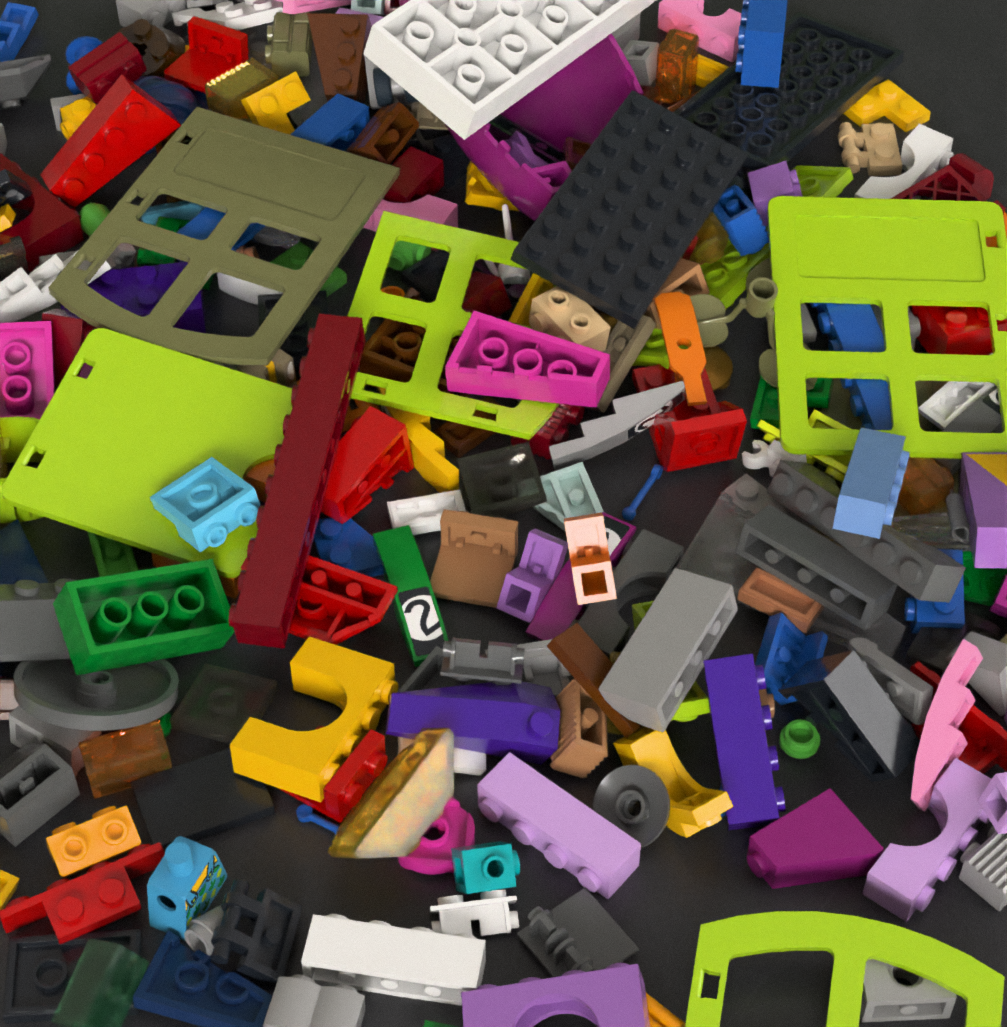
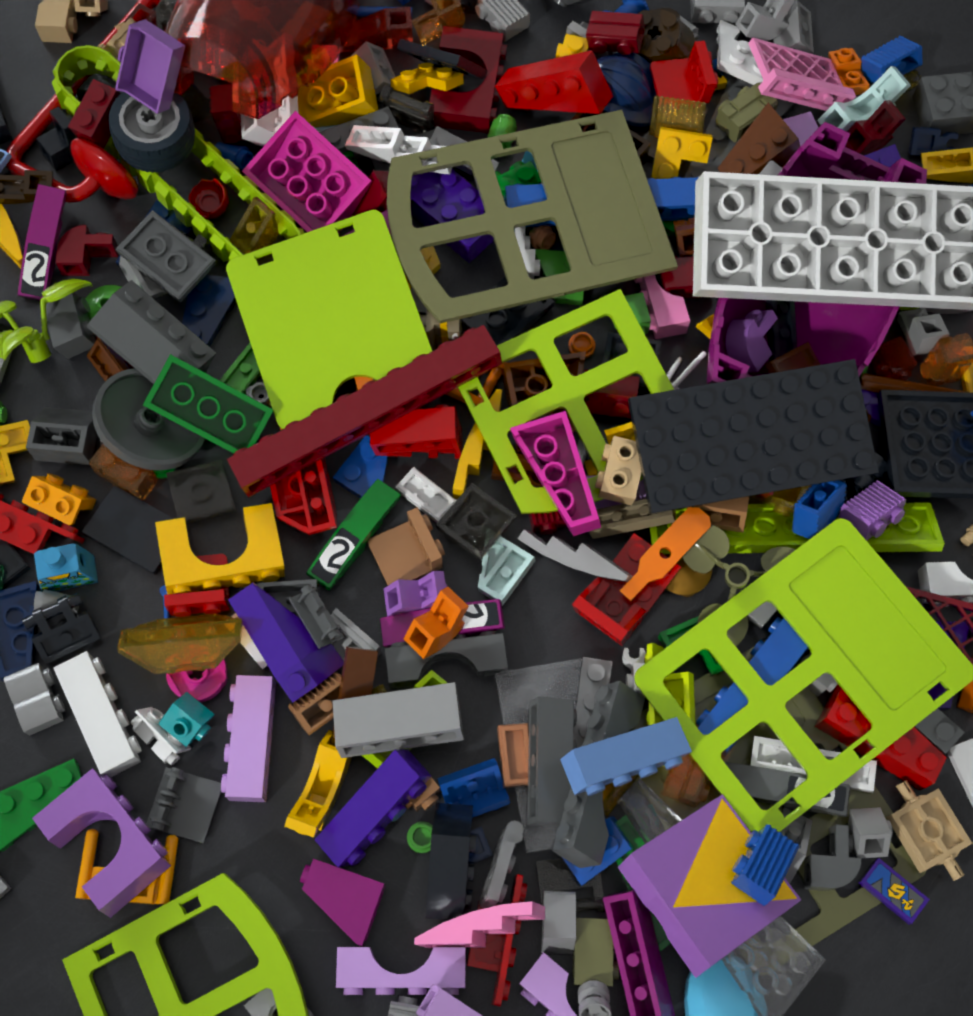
camera: 50 degrees right, 20 degrees up
(207, 504) = (303, 377): medium azure plate -> none
(621, 791) = (291, 772): dark grey dish -> none
(629, 512) = (525, 611): blue hinge -> none
(957, 517) = (666, 823): light grey piece -> none

